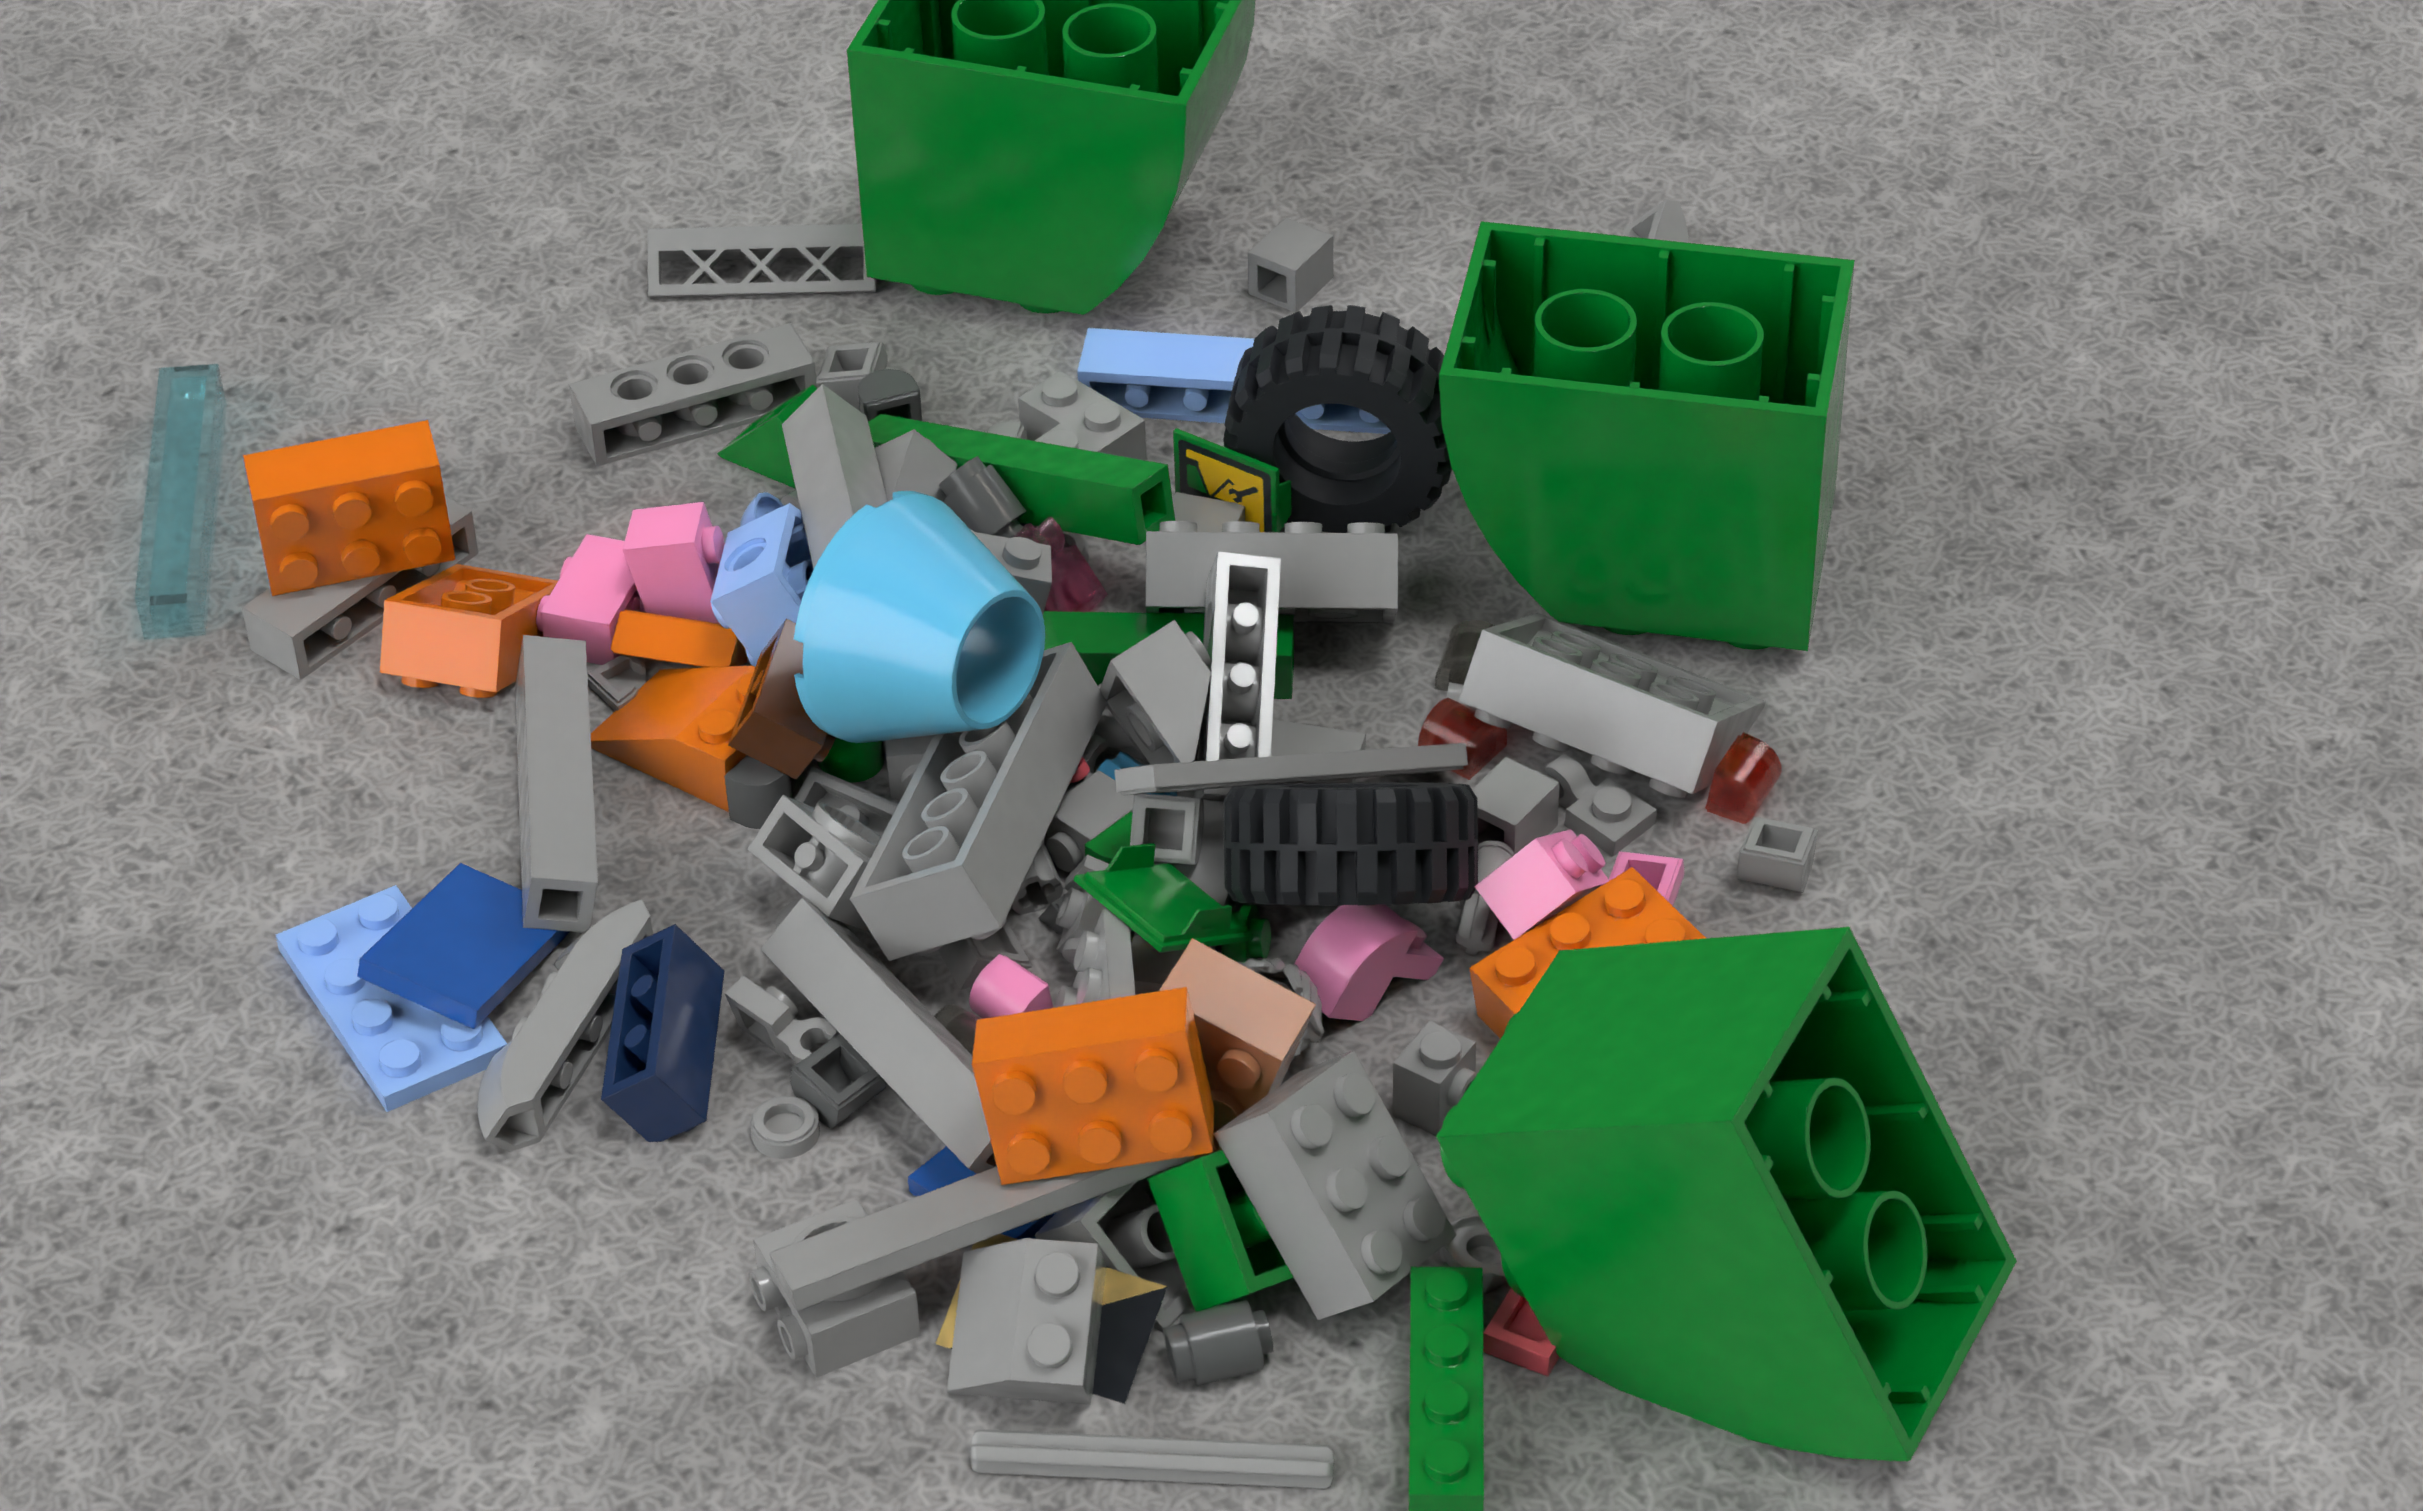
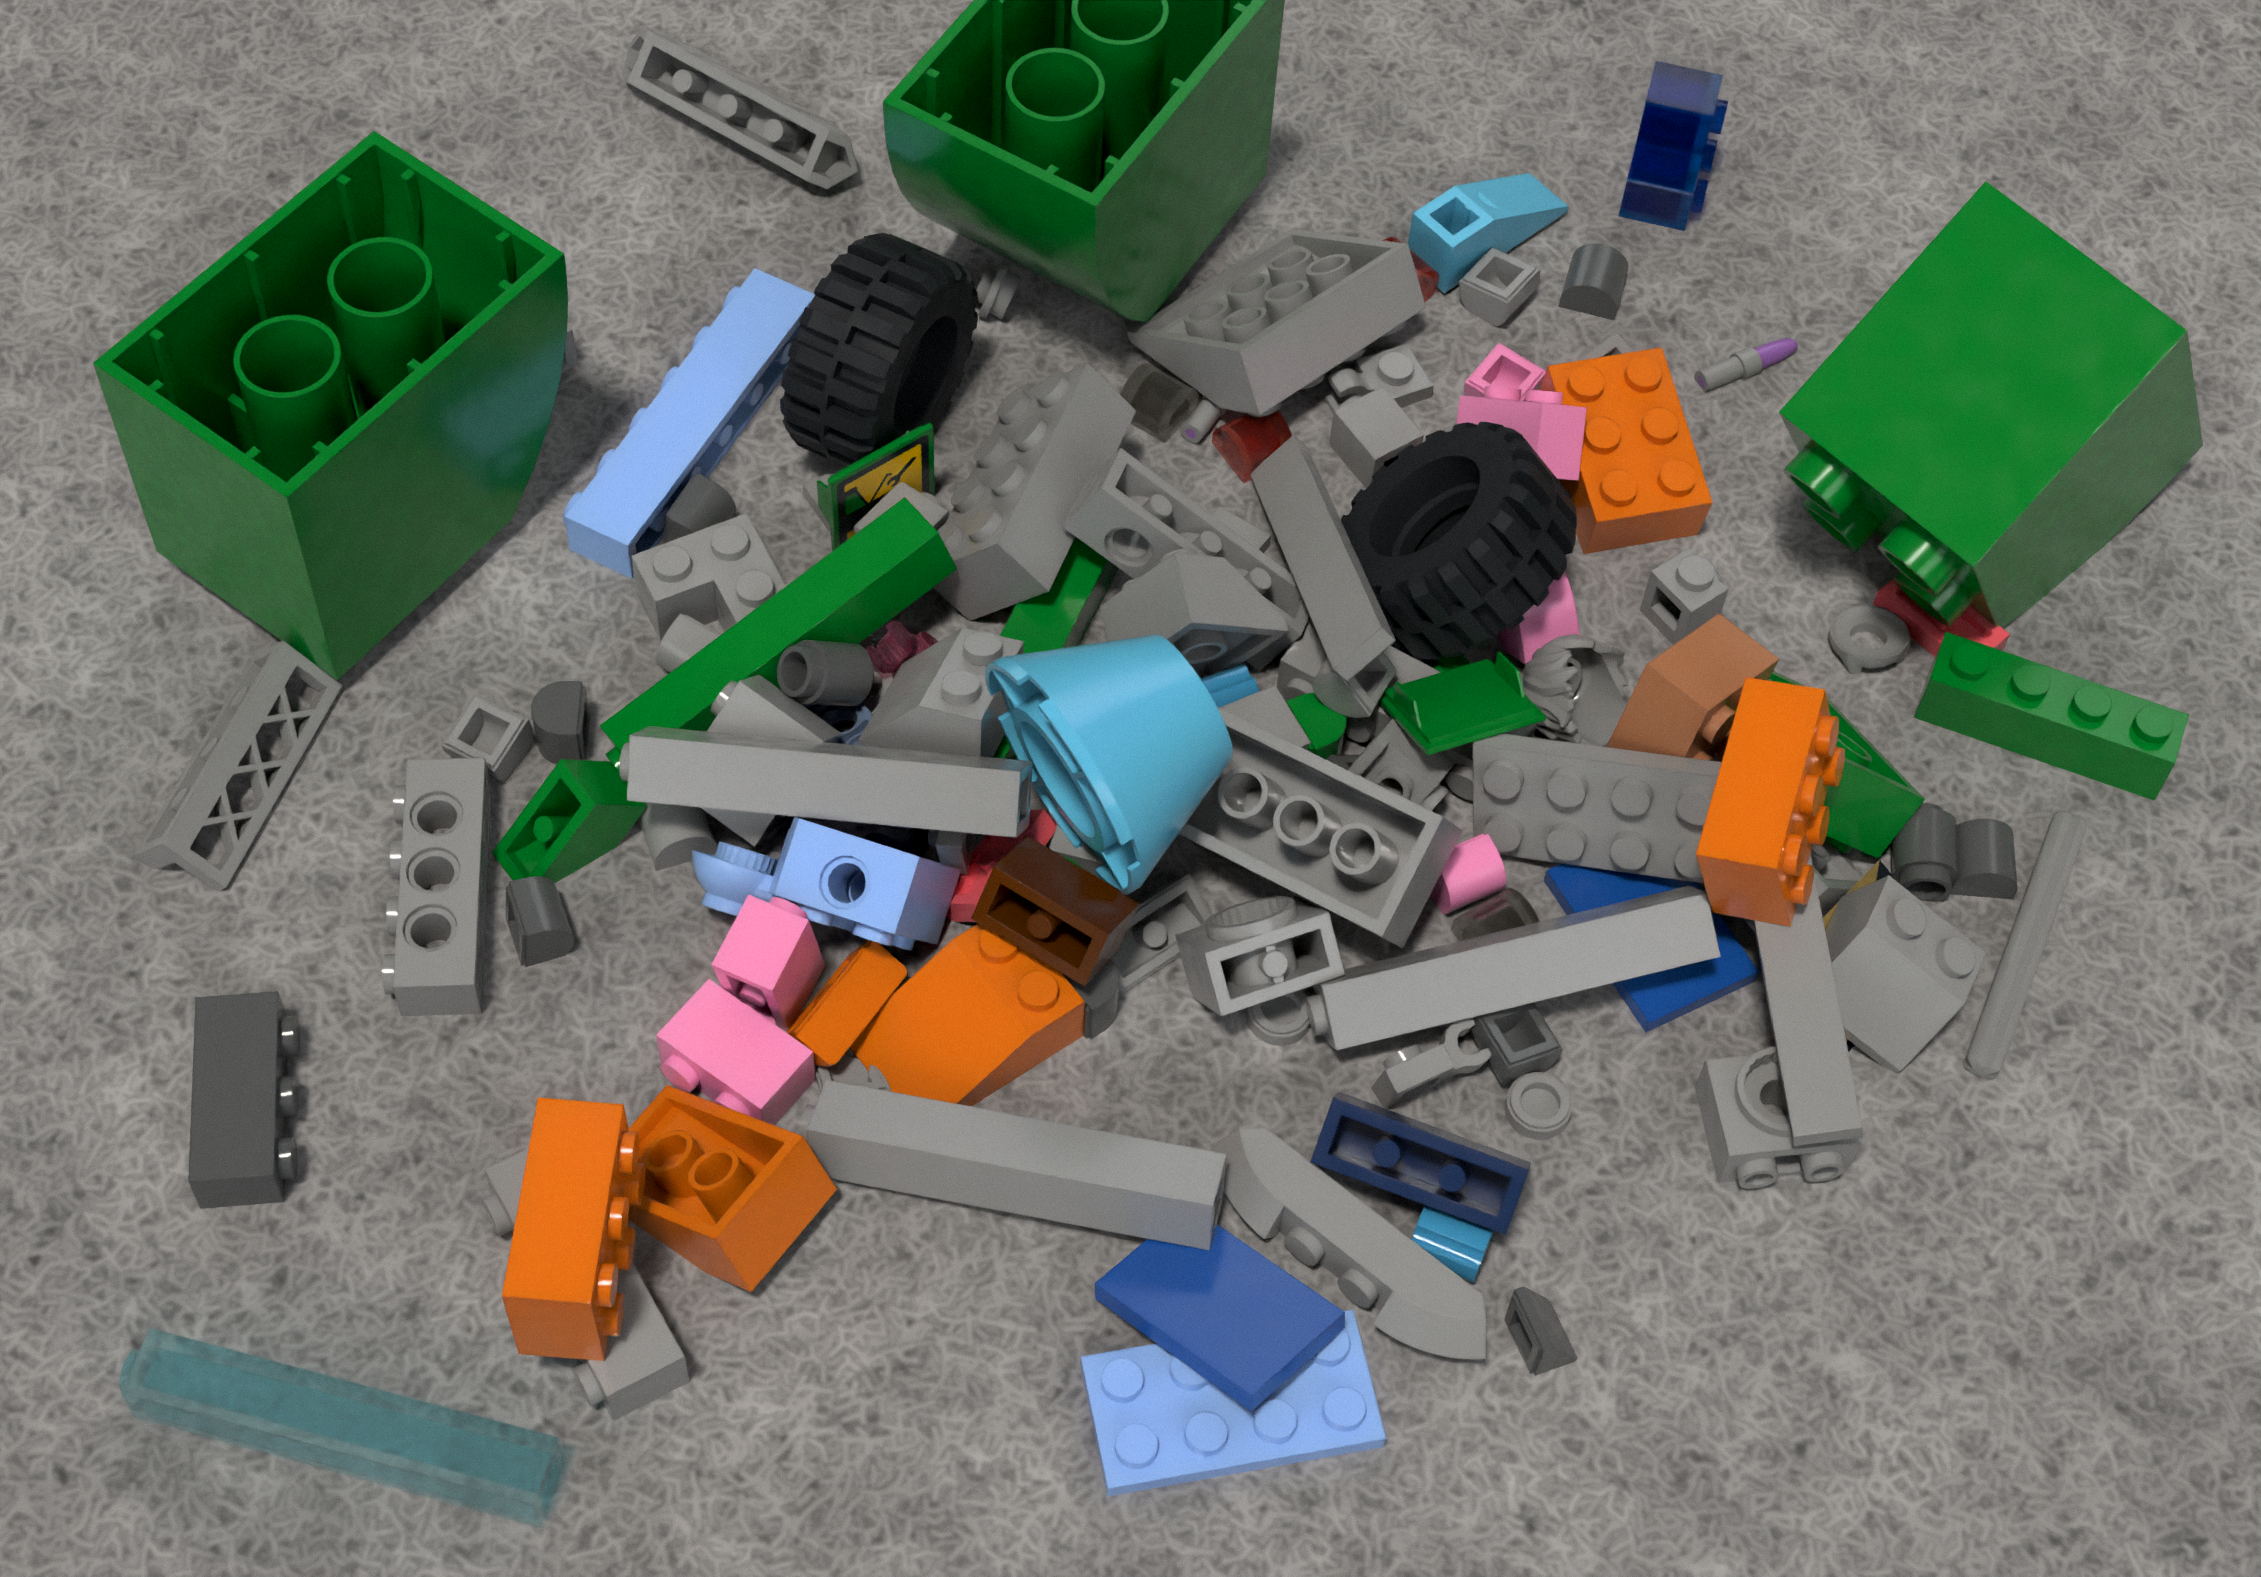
camera: 75 degrees left, 15 degrees up
(447, 356) = (242, 1100): none -> dark grey brick
(532, 1172) = (1538, 1332): none -> dark grey slope
(586, 1108) = (1453, 1241): none -> dark azure piece
(686, 452) = (537, 920): none -> dark grey brick
(1158, 406) = (698, 507): none -> dark grey brick
(1238, 1401) = (1985, 860): none -> dark grey brick
(1335, 1185) = (1879, 700): light grey brick -> none
(1849, 912) = (1595, 281): none -> dark grey brick
(1853, 813) = (1475, 217): none -> medium azure slope
(2050, 934) = (1674, 146): none -> clear blue brick

